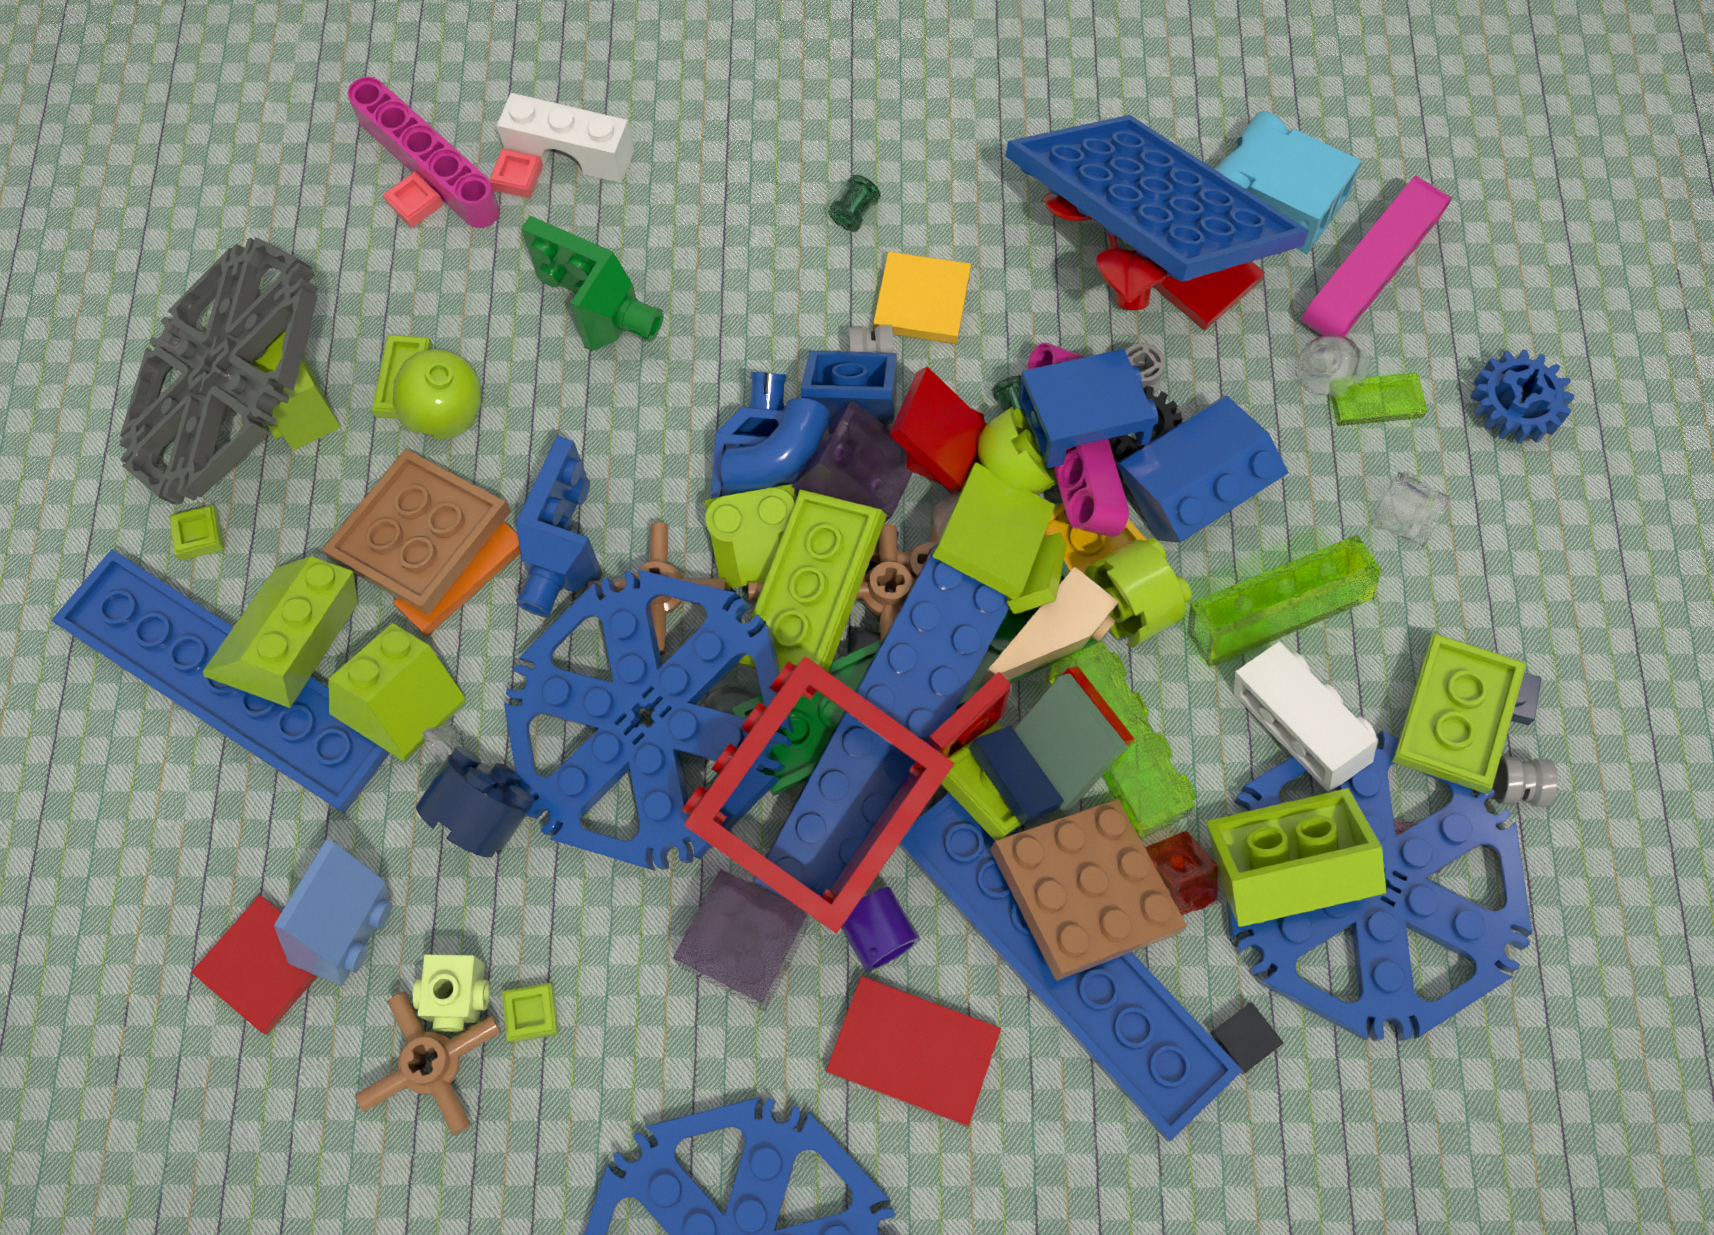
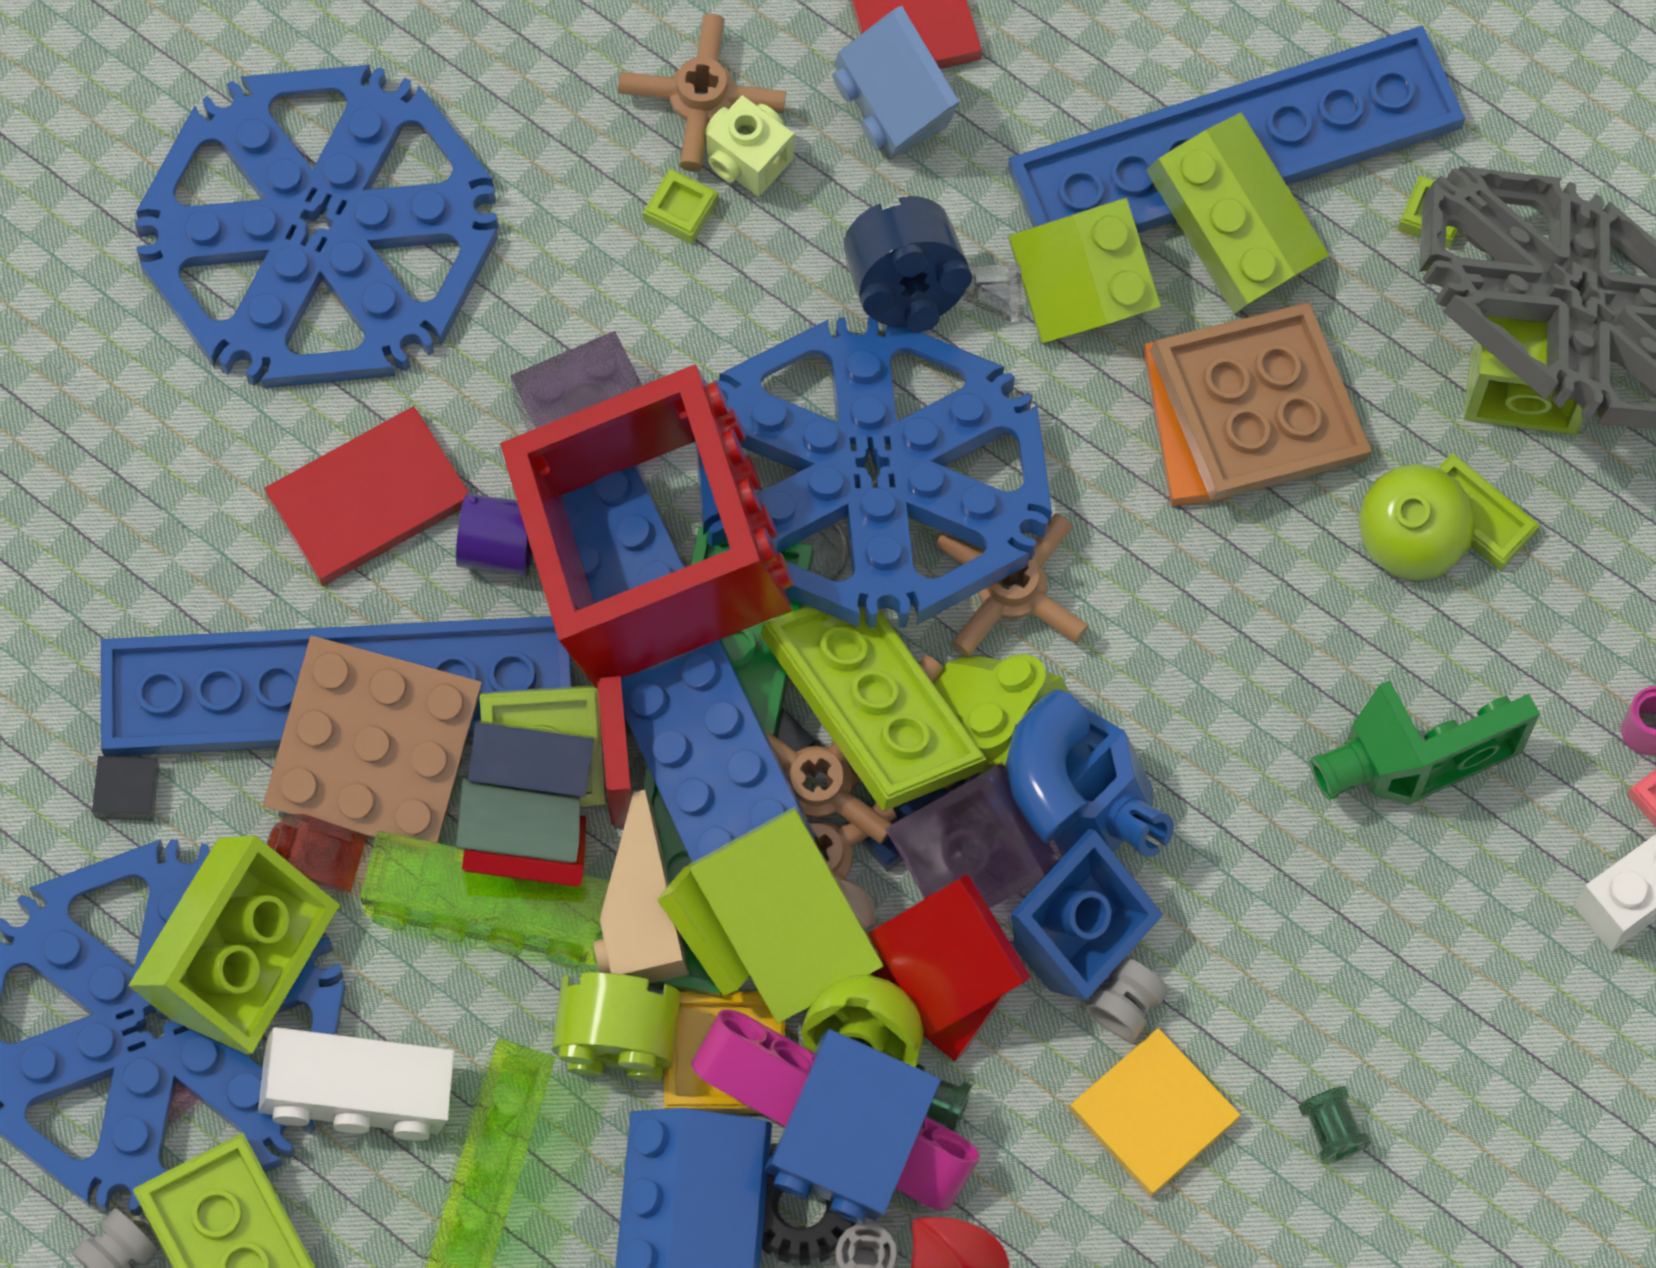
camera: 125 degrees right, 0 degrees up
(548, 548) = (1137, 492): blue plate -> none

